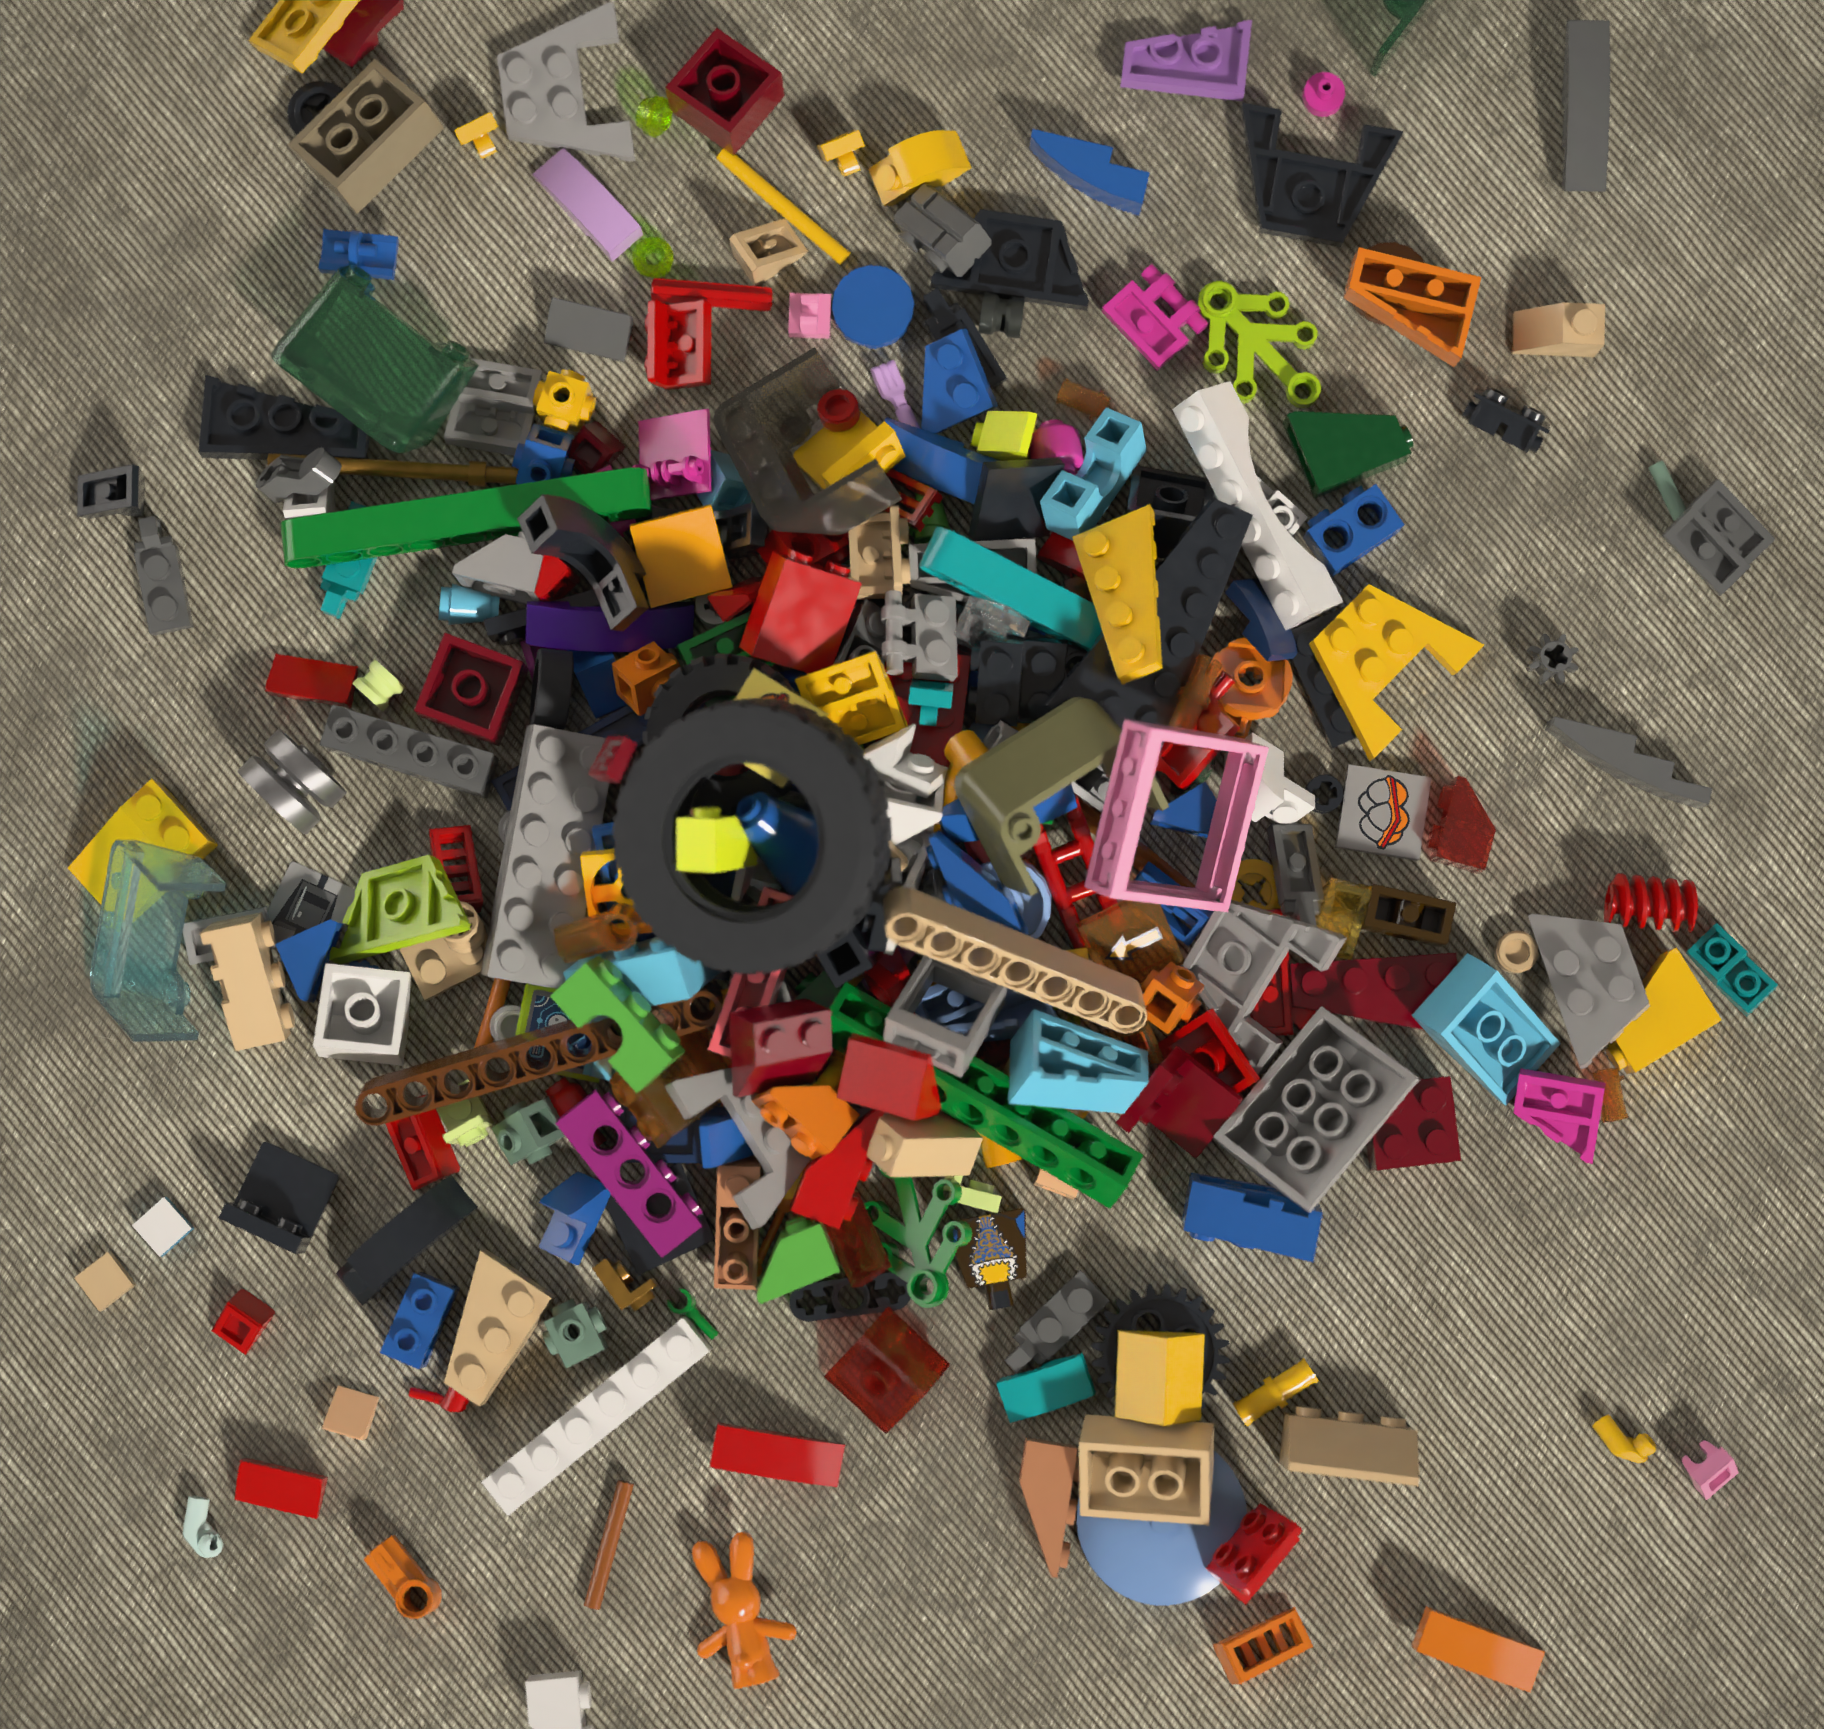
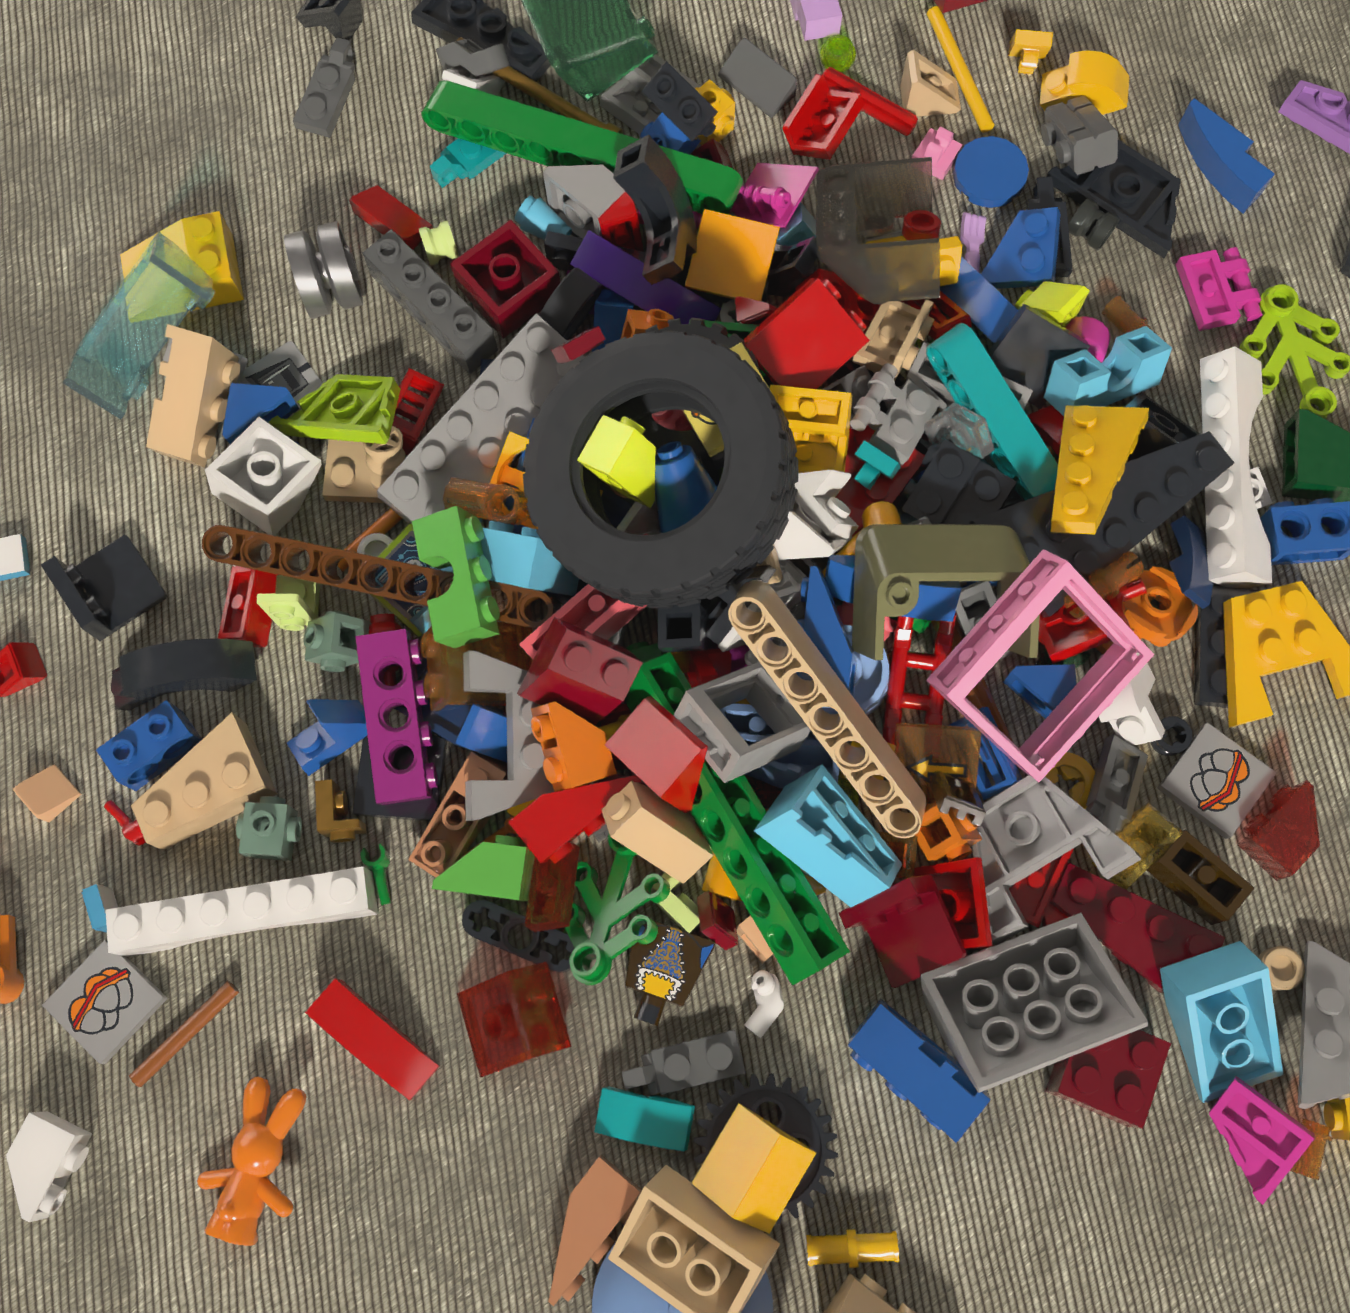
camera: 30 degrees right, 10 degrees down
(469, 1483) = (97, 900): none -> dark azure tile
(522, 1558) = (104, 1003): none -> light grey tile
(540, 421) = (681, 102): none -> black hinge
(1014, 1187) = (717, 920): none -> dark red tile
(1096, 1229) = (768, 1001): none -> white arm
(1156, 967) = (948, 793): none -> dark brown tile

